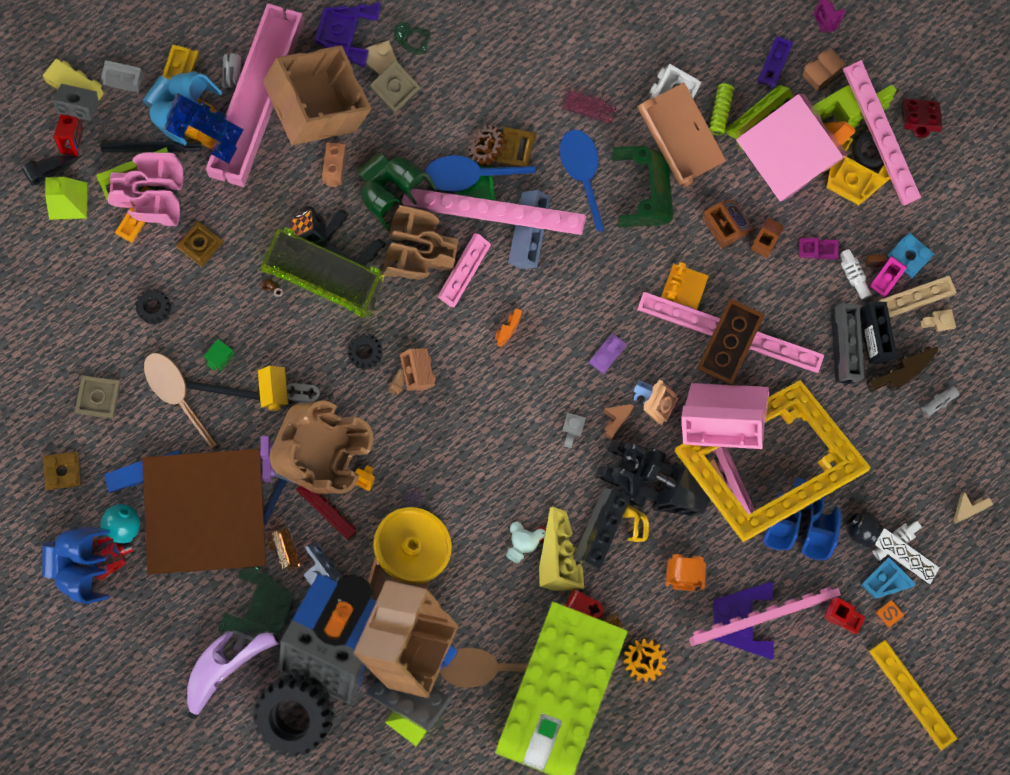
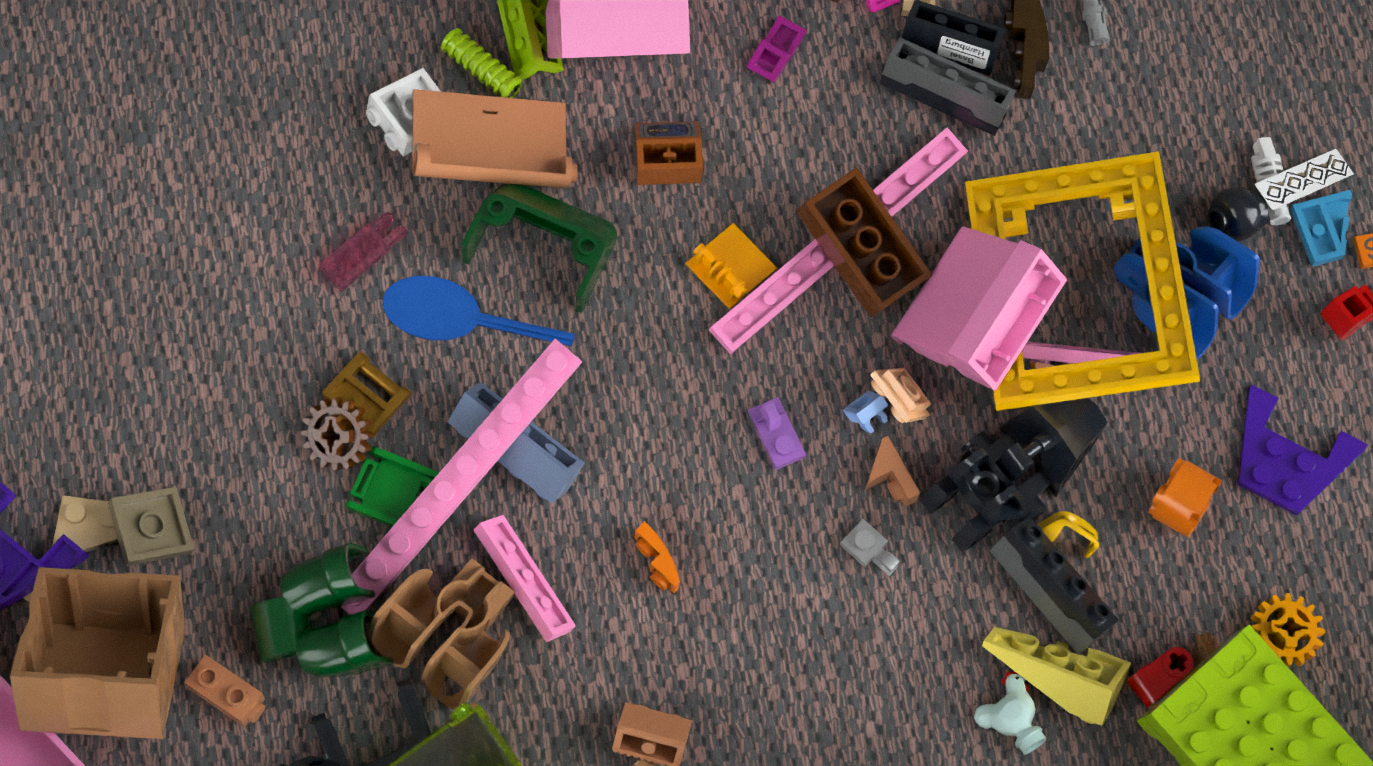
camera: 70 degrees left, 5 degrees down
(401, 35) = (65, 467): clear green piece -> none
(461, 173) = (360, 498): blue piece -> none
(756, 618) = (1303, 431): bright pink plate -> none
(767, 237) = (723, 108): dark orange slope -> none
(855, 274) = (843, 21): white hinge -> none
(966, 510) = (1273, 62): tan slope -> none

